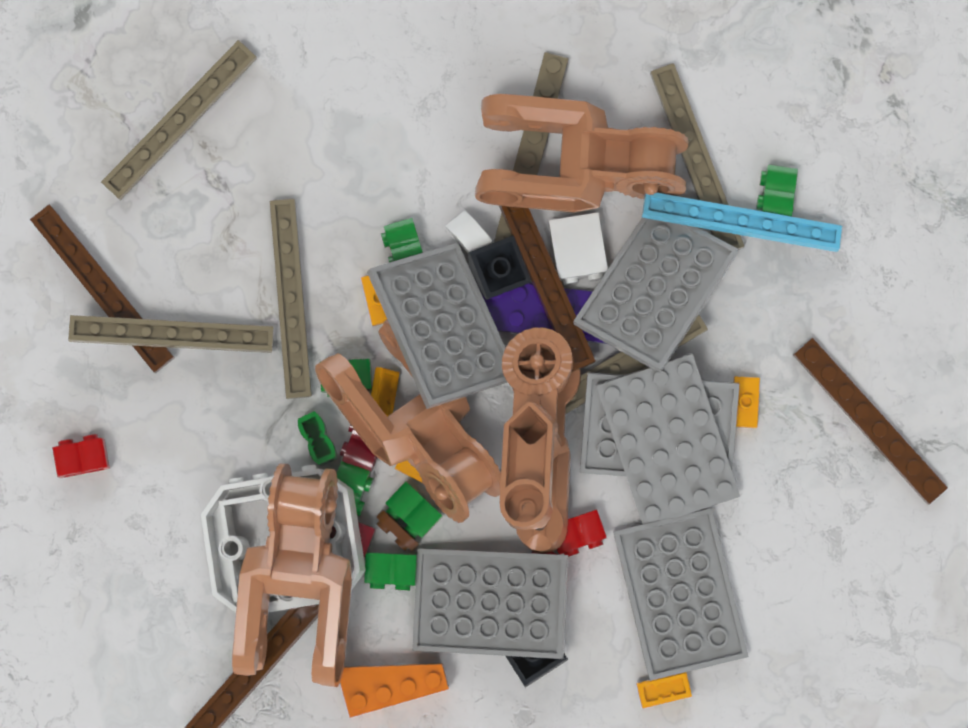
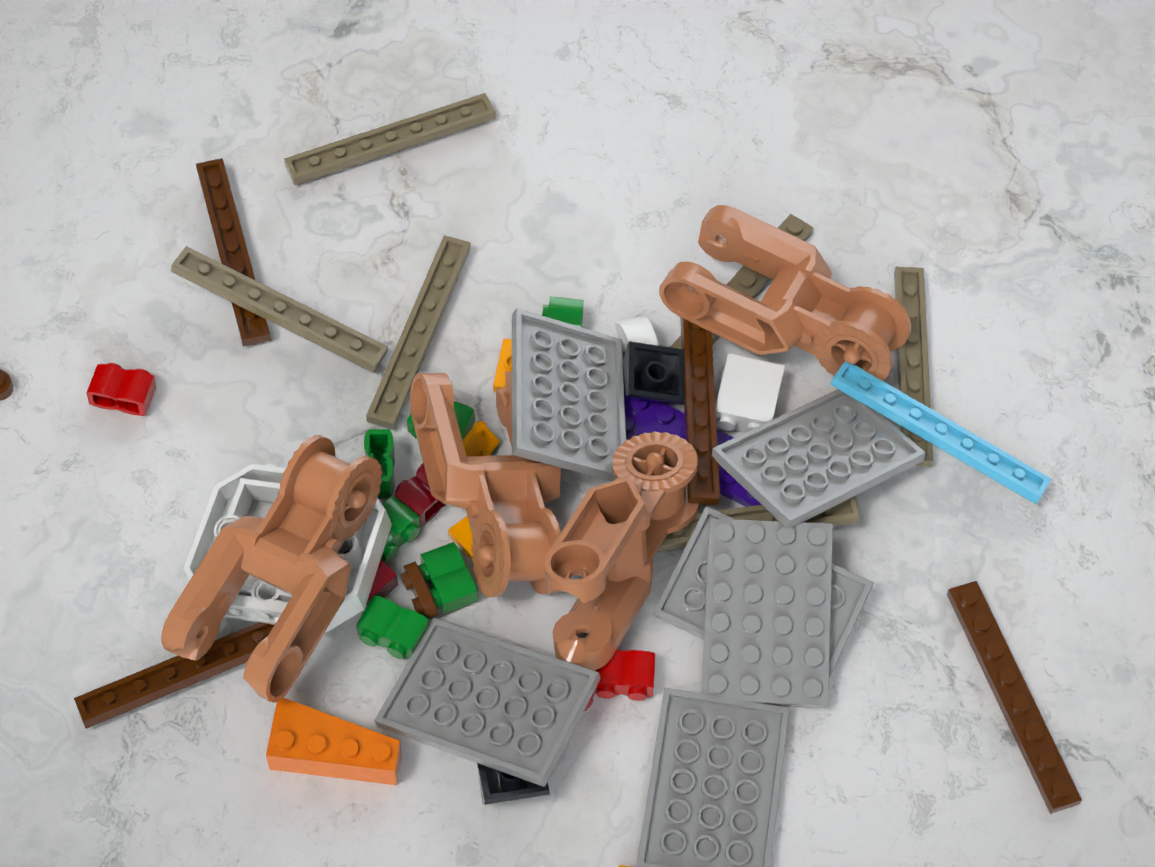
camera: 20 degrees right, 25 degrees down
(747, 402) = (873, 618): light orange plate -> none
(778, 190) = (993, 419): green brick -> none

